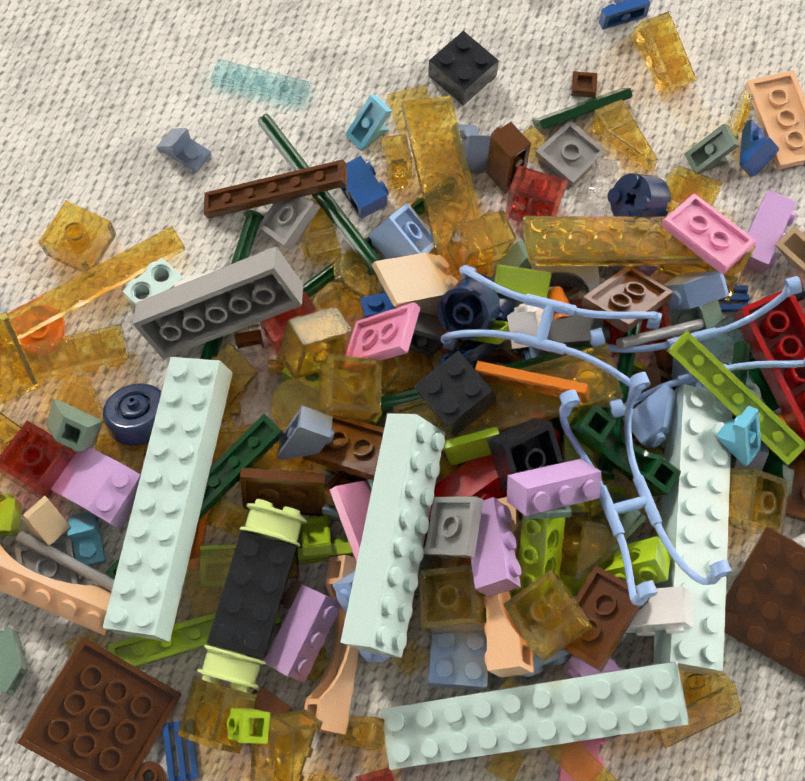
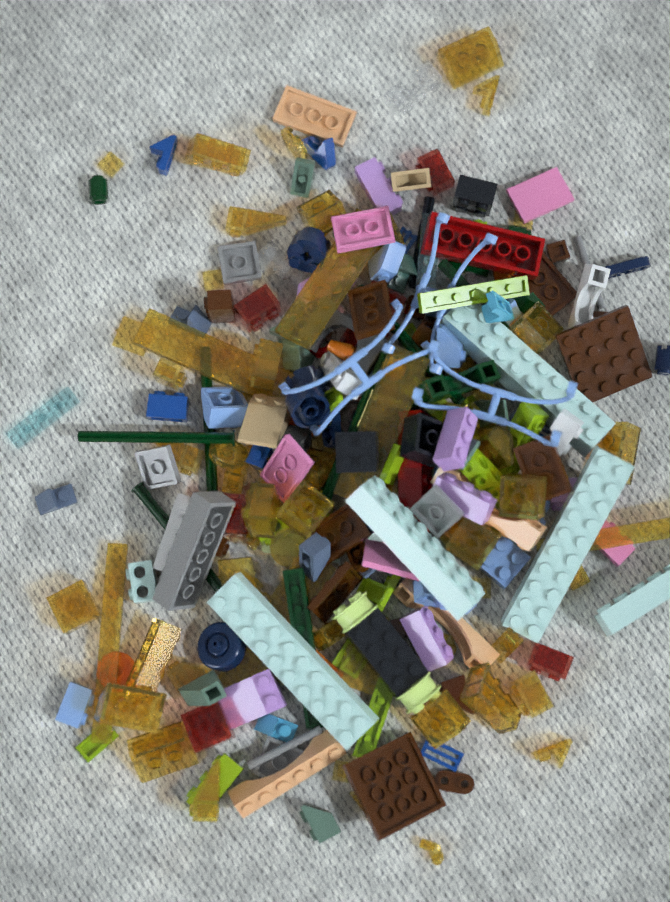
camera: 50 degrees left, 10 degrees up
(45, 521) = (255, 744): tan slope -> none
(241, 725) = (459, 707): lime brick -> none
(275, 189) = (134, 463): reddish brown tile -> none
(369, 123) = (127, 371): medium azure slope -> none
(463, 67) = (132, 284): black brick -> none
(523, 280) = (312, 361): lime tile -> none
(530, 381) = (384, 404): orange tile -> none
(581, 108) = (215, 232): dark green tile -> none
(584, 84) = (197, 217): reddish brown tile -> none
(659, 334) = (403, 300): light grey bar -> none

